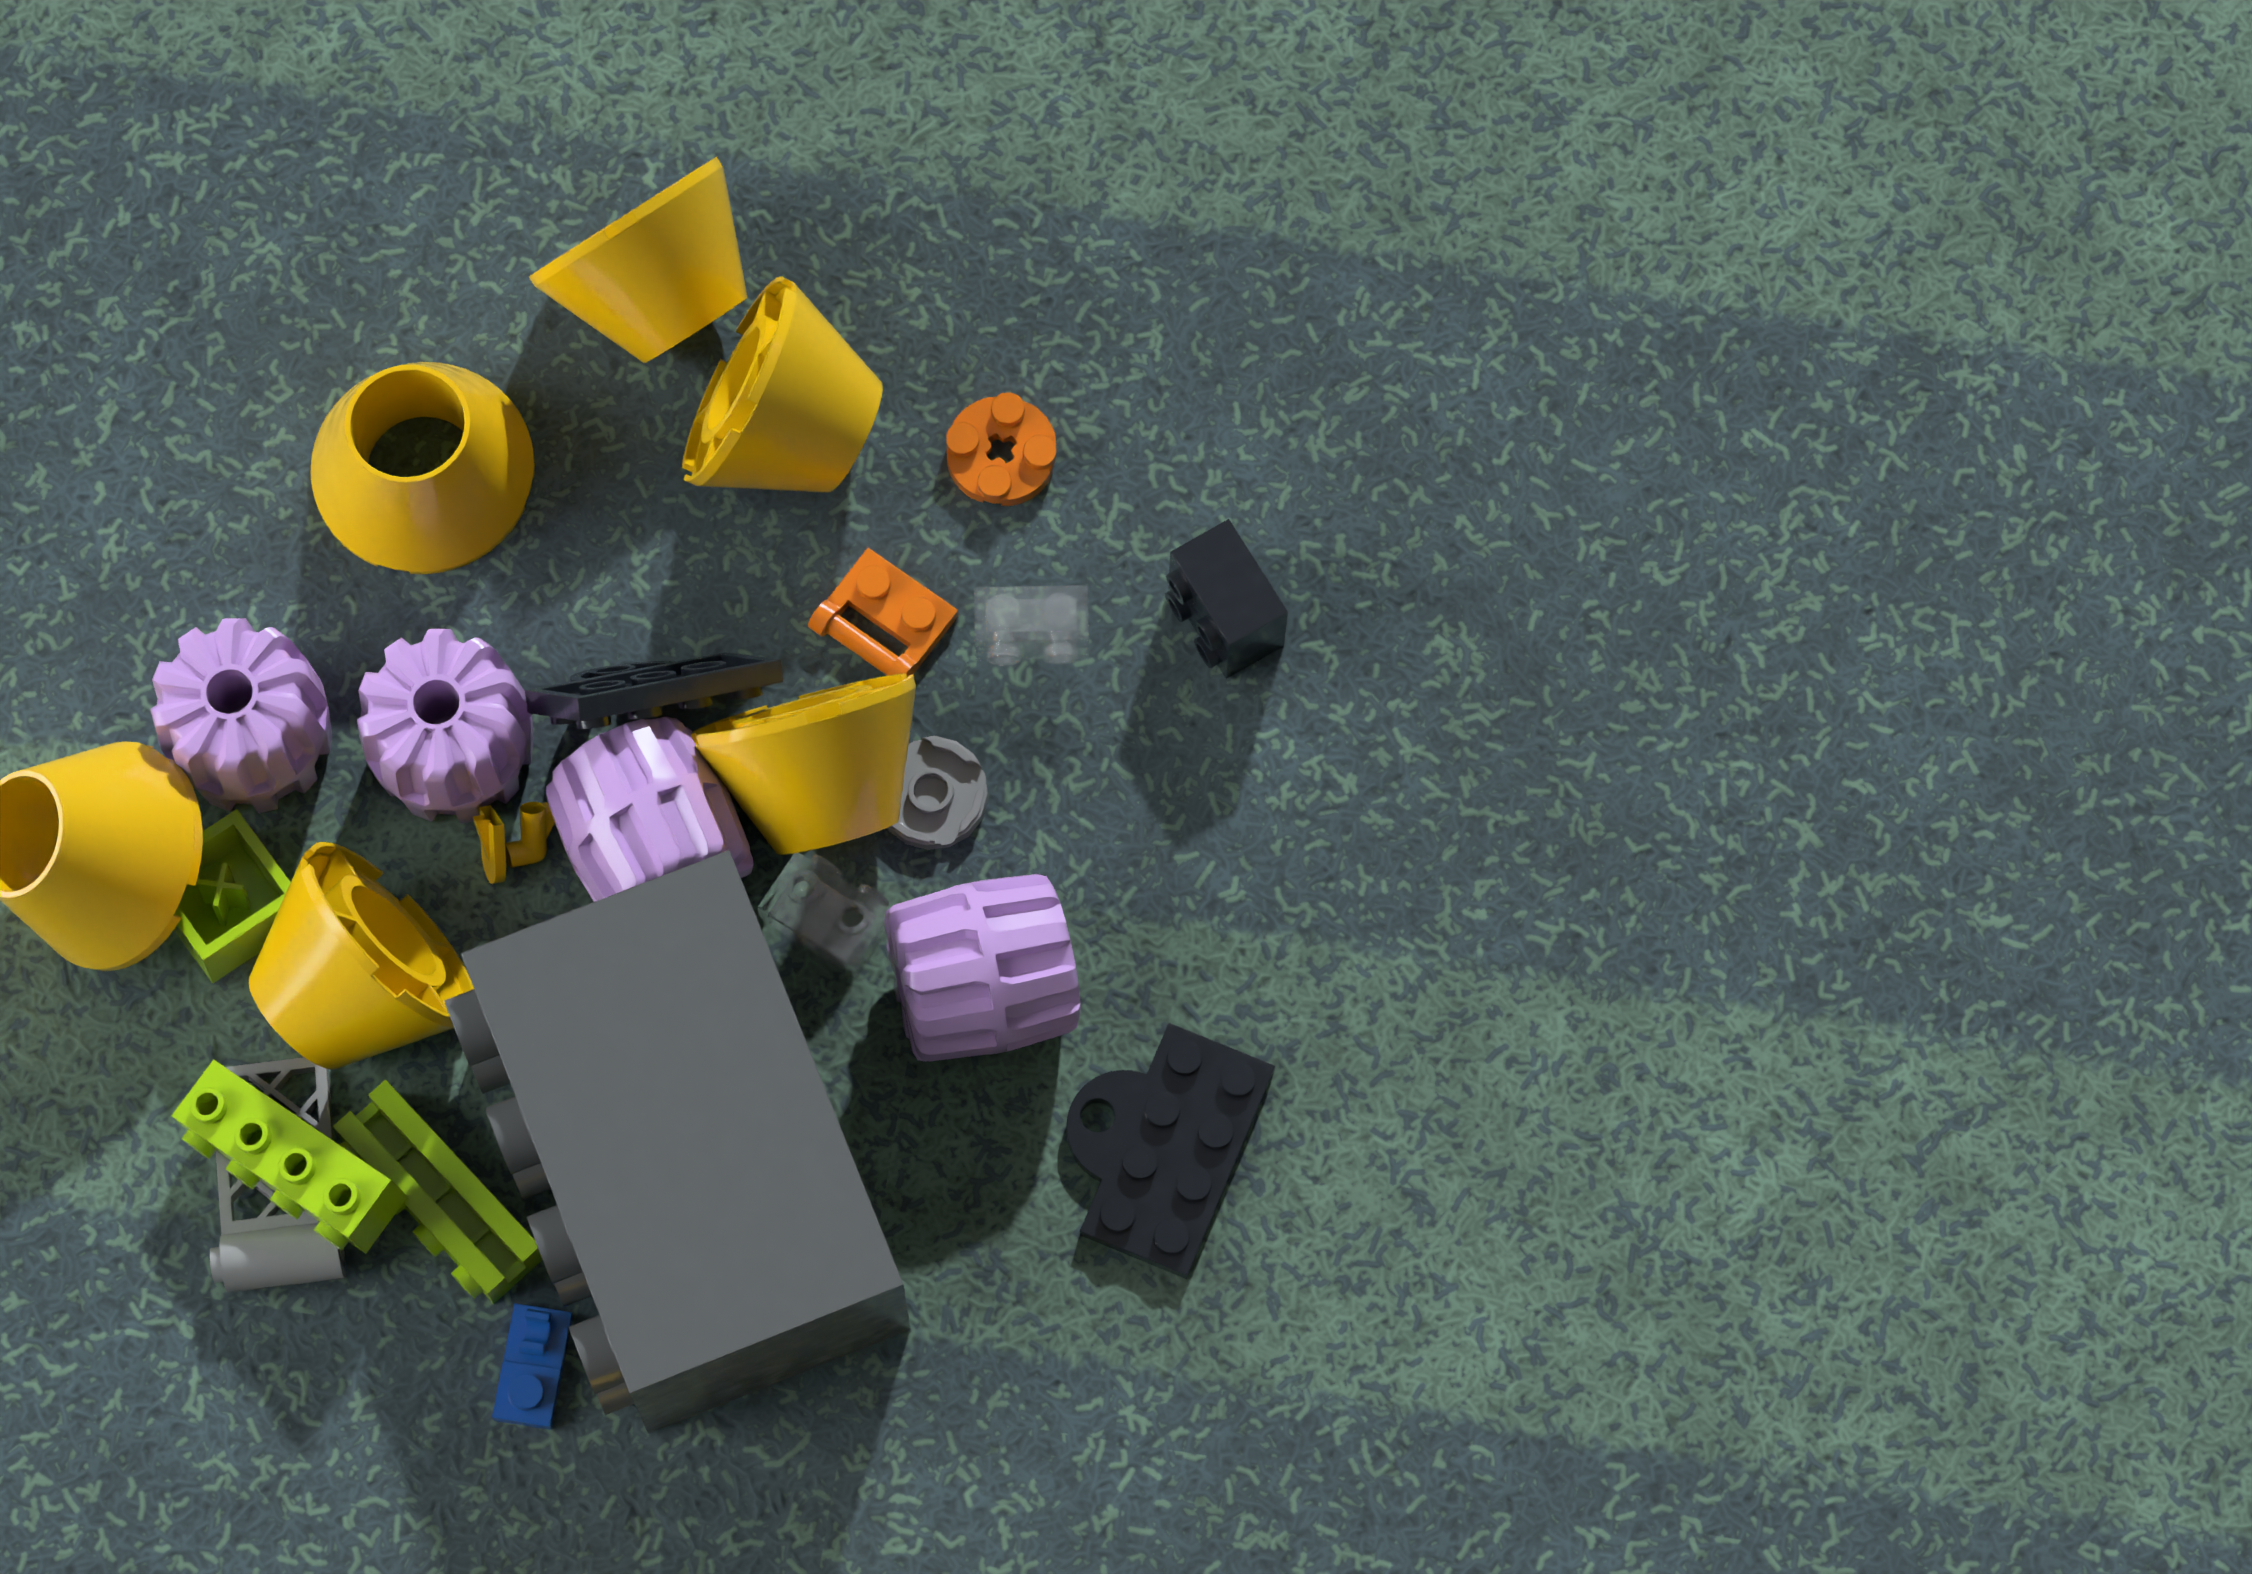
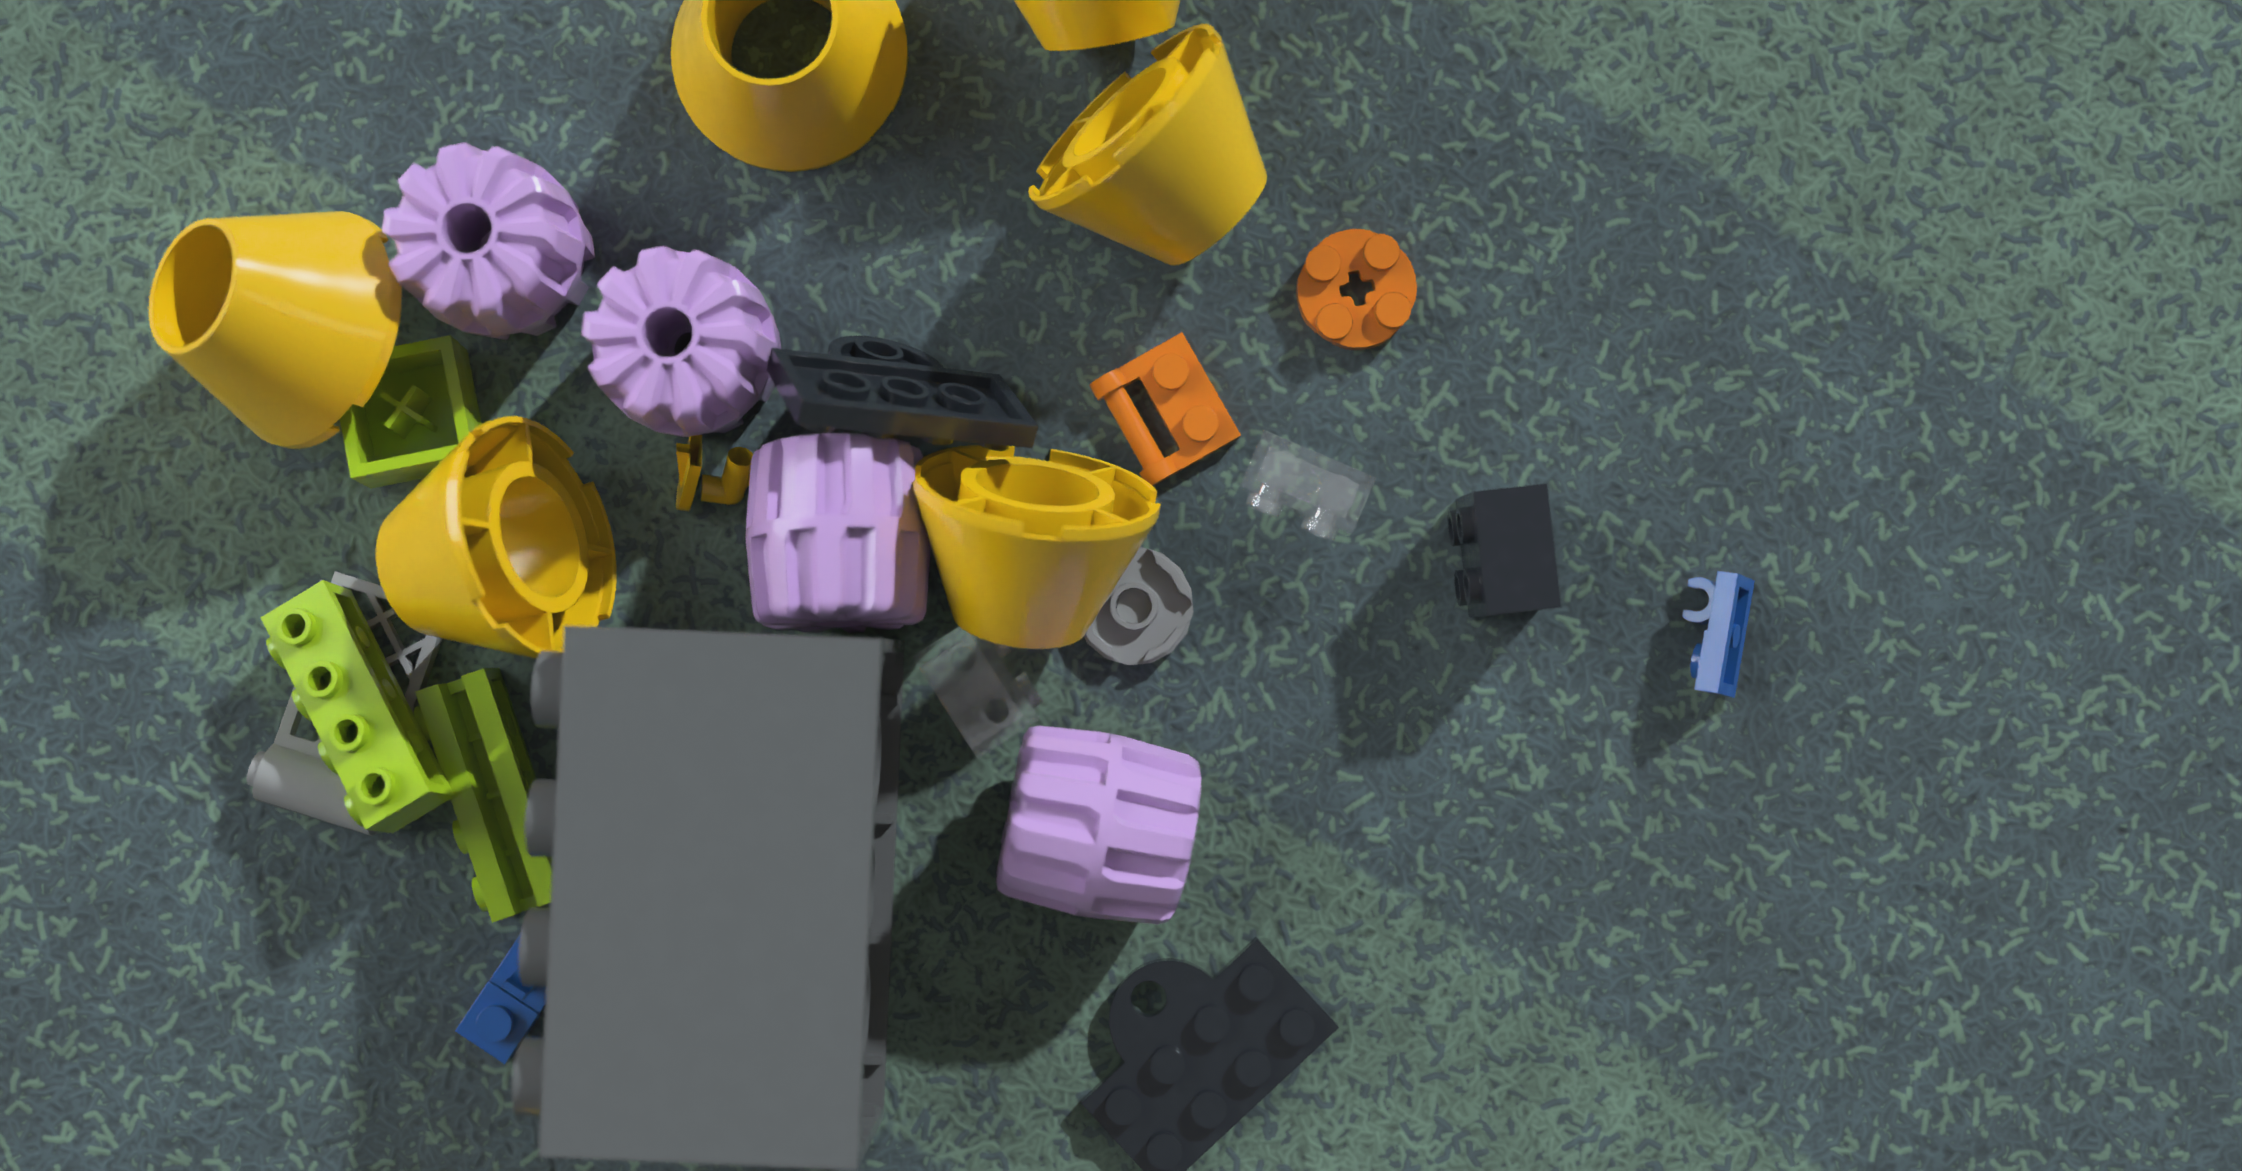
camera: 25 degrees right, 15 degrees up
(1445, 586) = (1718, 658): none -> plate

